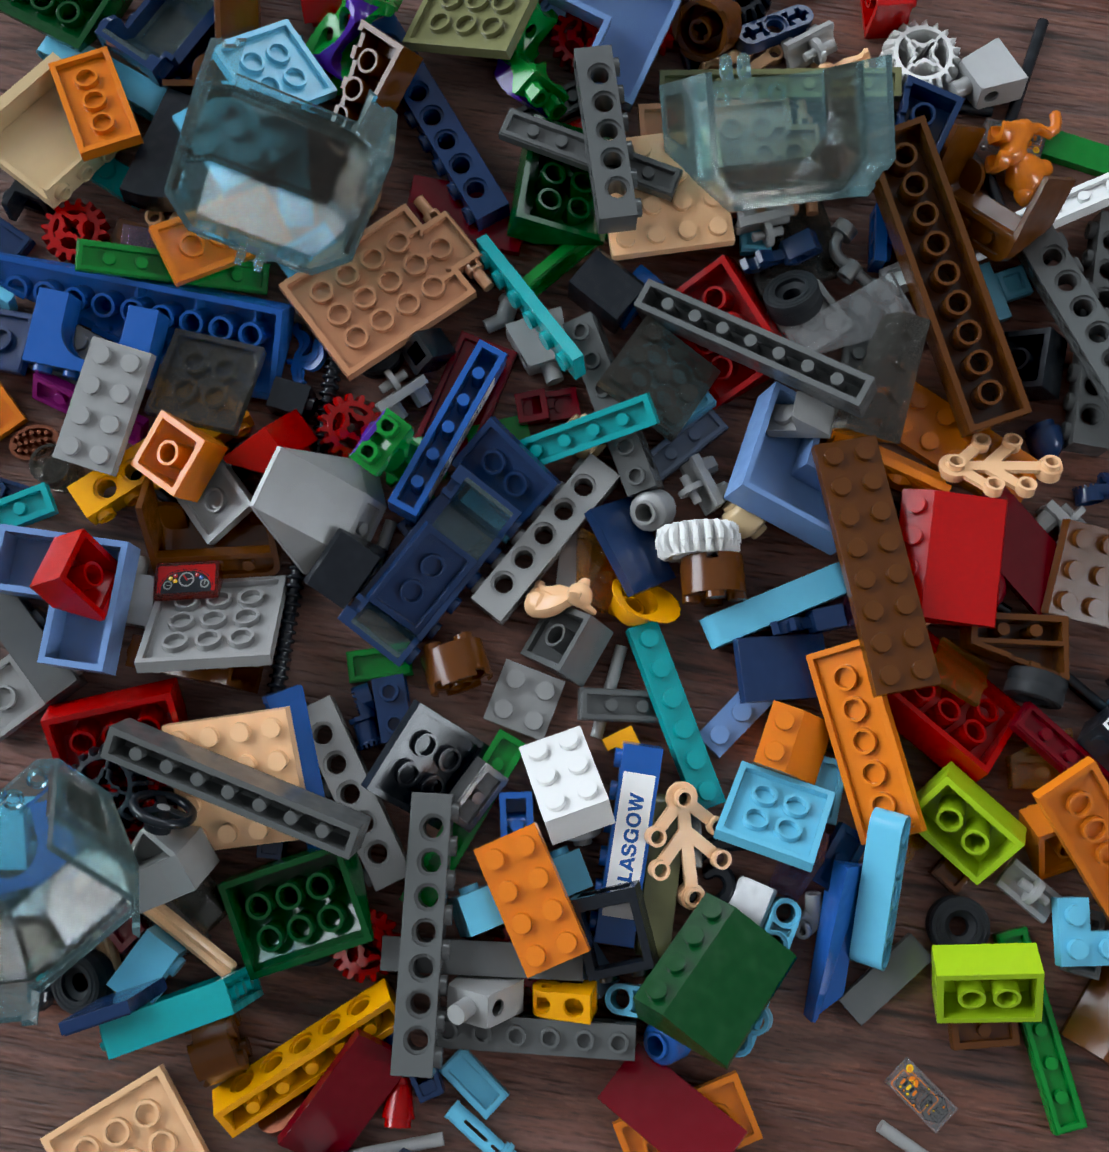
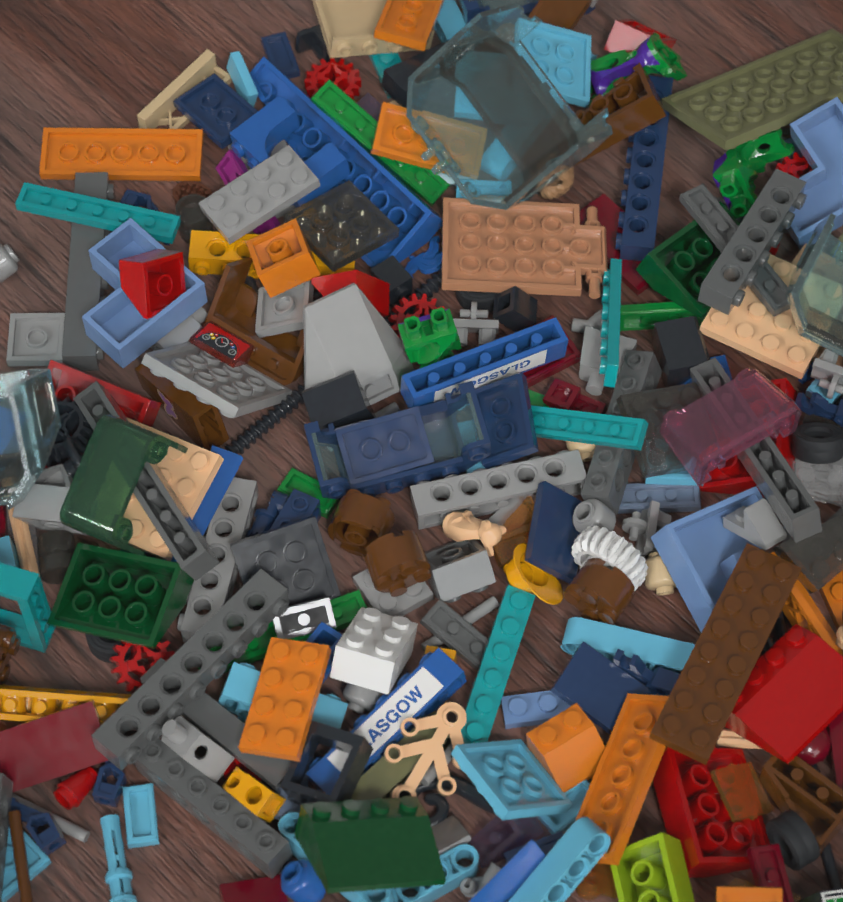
camera: 40 degrees right, 20 degrees down
(204, 814) = (109, 479): none -> clear green windscreen
(523, 687) = (397, 562): none -> reddish brown brick
(721, 341) = (728, 422): none -> clear pink windscreen

